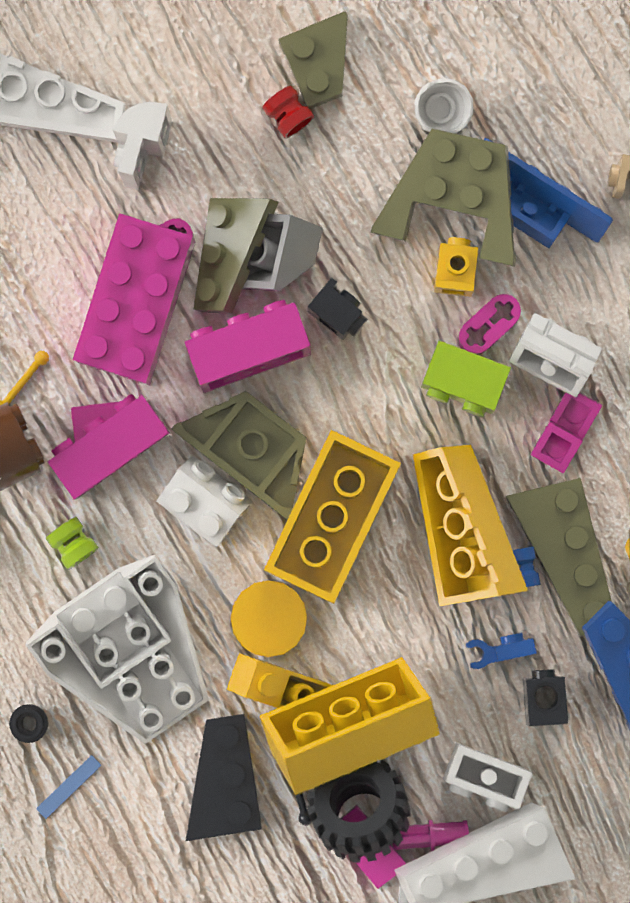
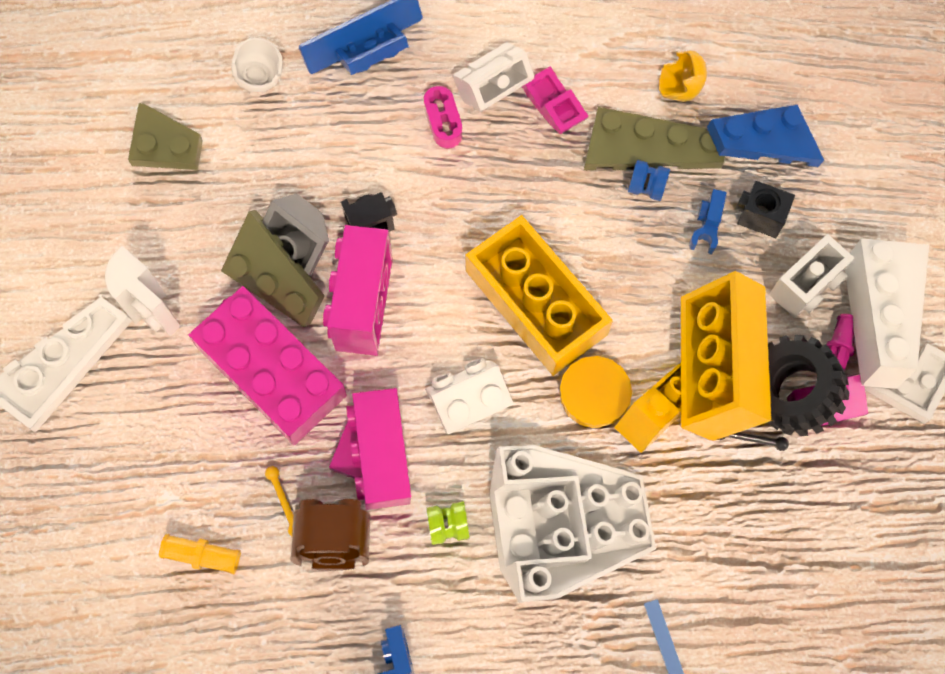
camera: 65 degrees left, 15 degrees down
(20, 732) = (601, 639): black plate -> none
(225, 782) = (724, 496): black wing -> none
(250, 447) = (443, 336): olive wing -> none
(288, 111) = (189, 178): red wheel -> none
(456, 281) = (386, 117): yellow brick -> none
(461, 177) = (318, 75): olive wing -> none
(464, 528) = (600, 199): yellow wedge -> none
(465, 379) = (476, 146): lime brick -> none

